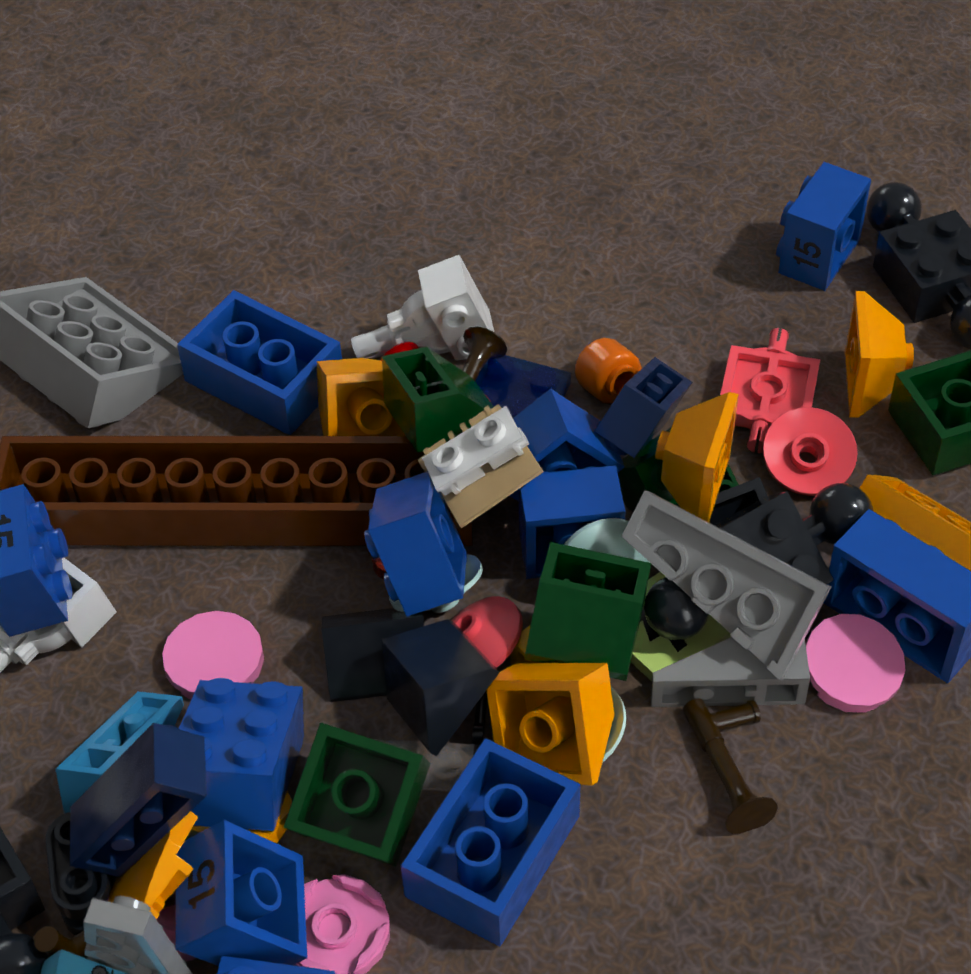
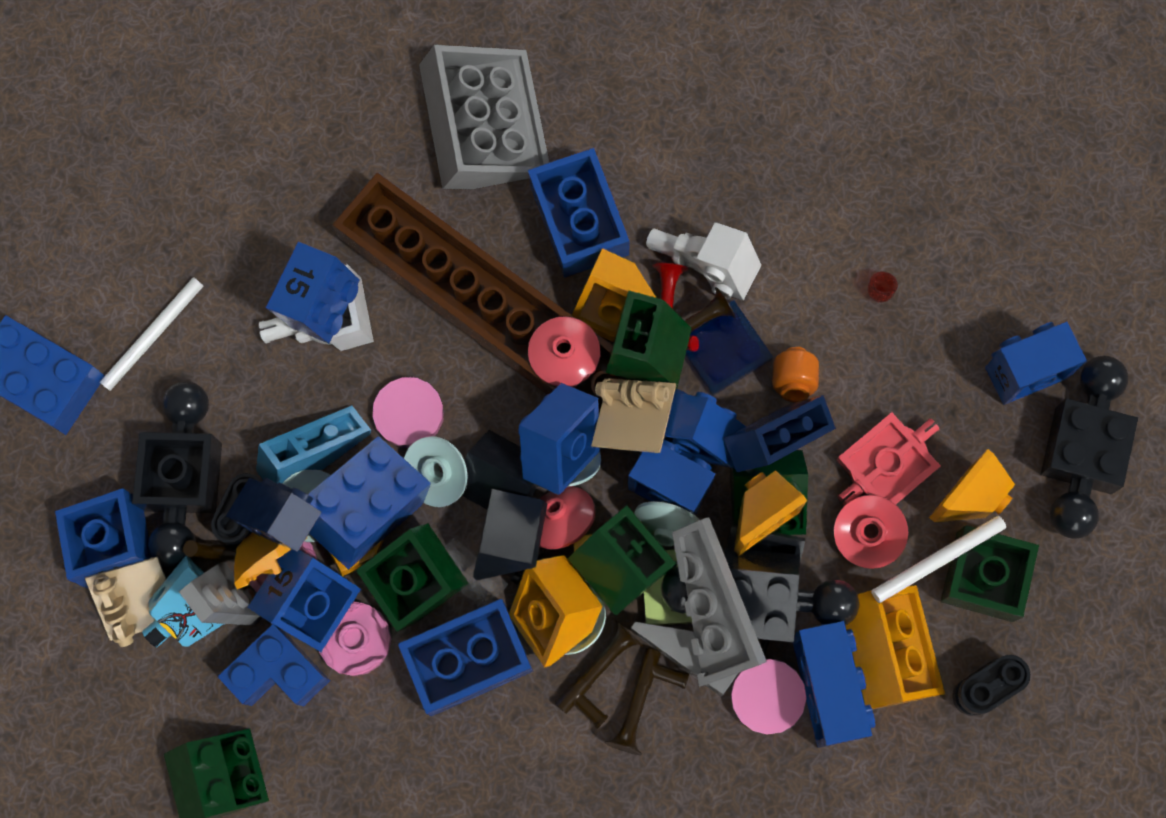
camera: 40 degrees right, 25 degrees up
(316, 661) = (426, 457): none -> light aqua dish
(350, 469) = (568, 367): none -> coral dish
(461, 458) = (627, 410): white hinge -> none
(623, 261) = (883, 282): none -> clear red hinge
(652, 706) = (576, 691): none -> dark brown piece
(901, 411) = (938, 559): none -> white bar

